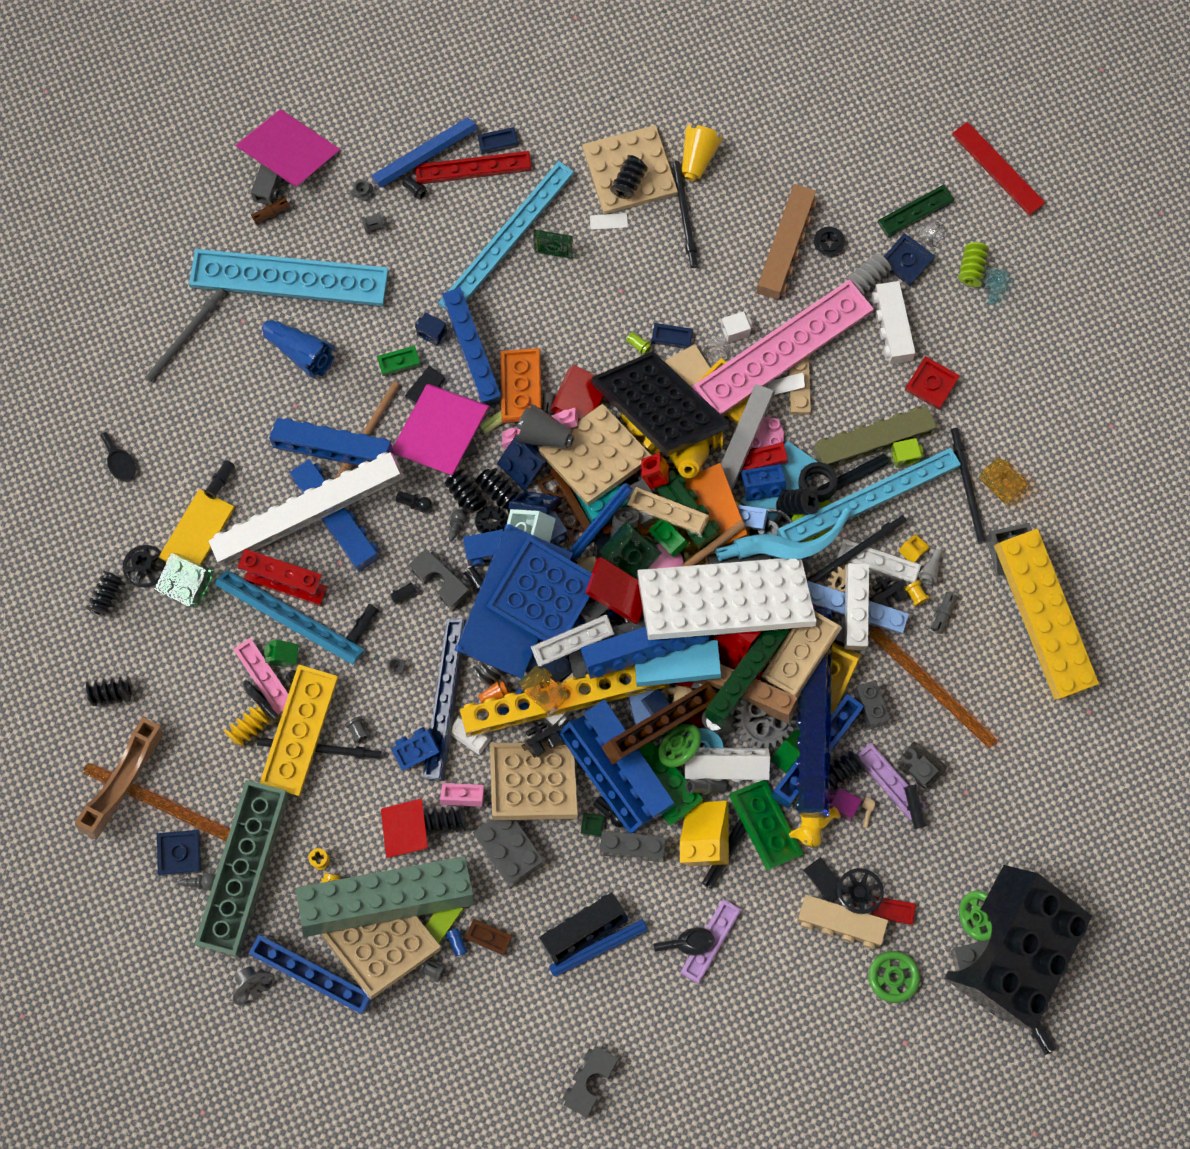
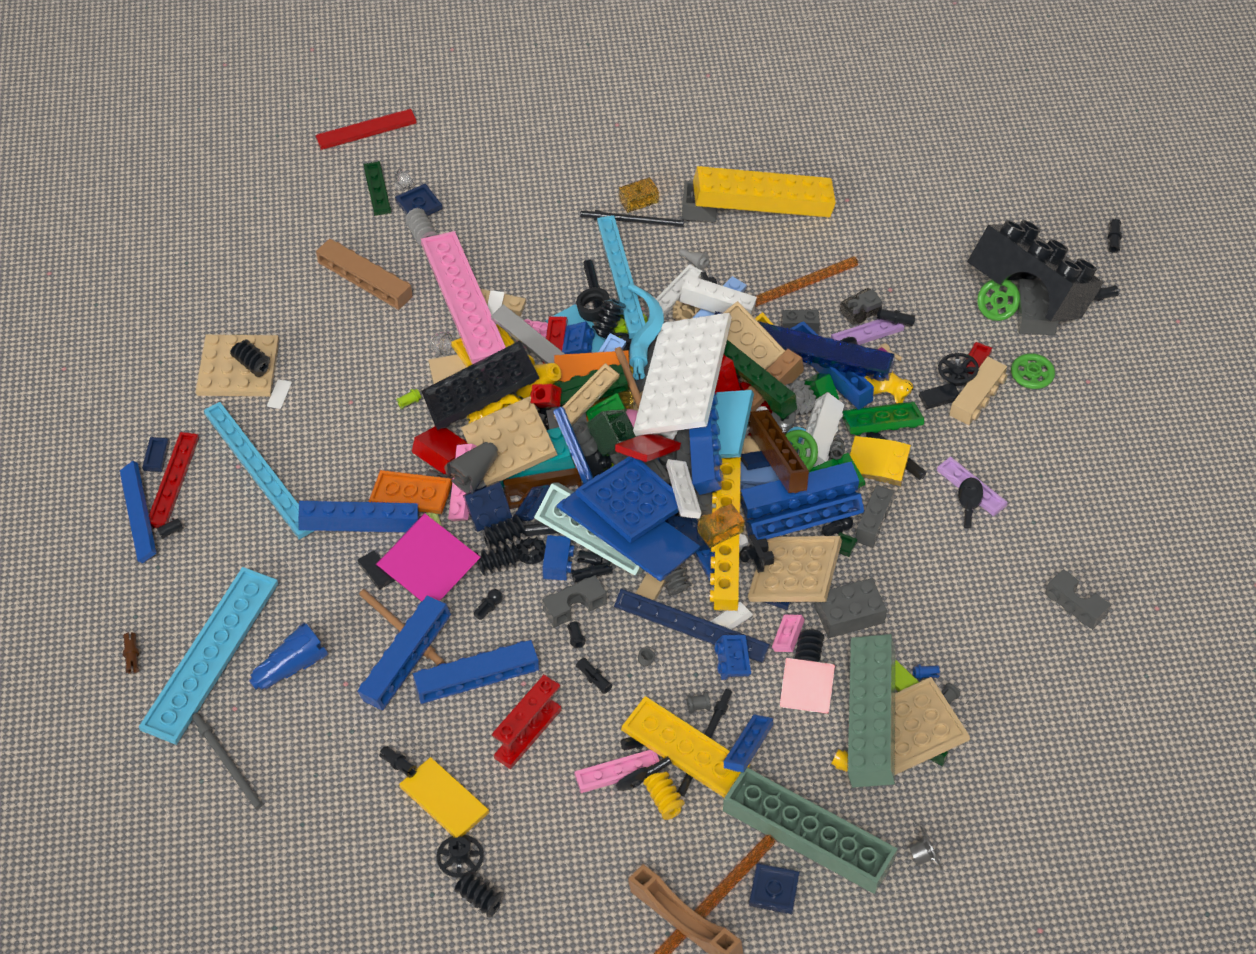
camera: 75 degrees left, 20 degrees down
(109, 692) = (584, 913): black piece -> none
(119, 461) = (336, 852): black piece -> none
(184, 580) = (494, 813): clear green brick -> none
(201, 881) = (811, 869): dark grey bar -> none
(266, 186) = (99, 646): dark grey brick -> none
(281, 653) = (601, 745): green brick -> none
(287, 147) = (72, 619): dark pink piece -> none
(290, 617) = (559, 739): dark azure plate -> none
(307, 508) = (466, 685): white brick -> none
(310, 973) = (928, 793): blue brick -> none
(314, 855) = (822, 760): yellow bush -> none
(317, 787) = (748, 743): none -> blue plate
(361, 184) = (148, 567): dark grey plate -> none
(373, 222) = (188, 569): dark grey bush -> none
(398, 361) = (341, 583): green plate -> none
(430, 328) = (321, 548): dark blue brick -> none
(457, 522) = (522, 576): dark grey bar -> none
(488, 937) = (927, 645): reddish brown plate -> none
(497, 690) = (699, 584): orange cone -> none
(553, 244) = (286, 429): clear green tile -> none
(583, 928) = (940, 569): black brick -> none
(600, 947) = (958, 567): blue axle -> none
(672, 336) = (412, 375): dark blue tile -> none
(690, 247) = (335, 340): black bar -> none
(699, 149) = (248, 307): yellow cone -> none
(736, 327) = (426, 326): white brick -> none
(834, 235) = (373, 243): black gear -> none
(874, 438) = (568, 262): olive brick -> none
(886, 530) = (652, 276): black bar -> none
(894, 322) = (472, 224): white brick -> none
(906, 452) = (589, 246): lime brick -> none
(913, 548) = (673, 266): yellow slope -> none
(917, 593) = (715, 271): yellow bush -> none
(932, 382) = (534, 215): red plate -> none
(944, 612) = (735, 260): dark grey pin -> none
(973, 263) = (444, 163): lime piece -> none
(995, 282) = (466, 154): clear light blue plate -> none
(1141, 1035) = (1114, 235): none -> black pin

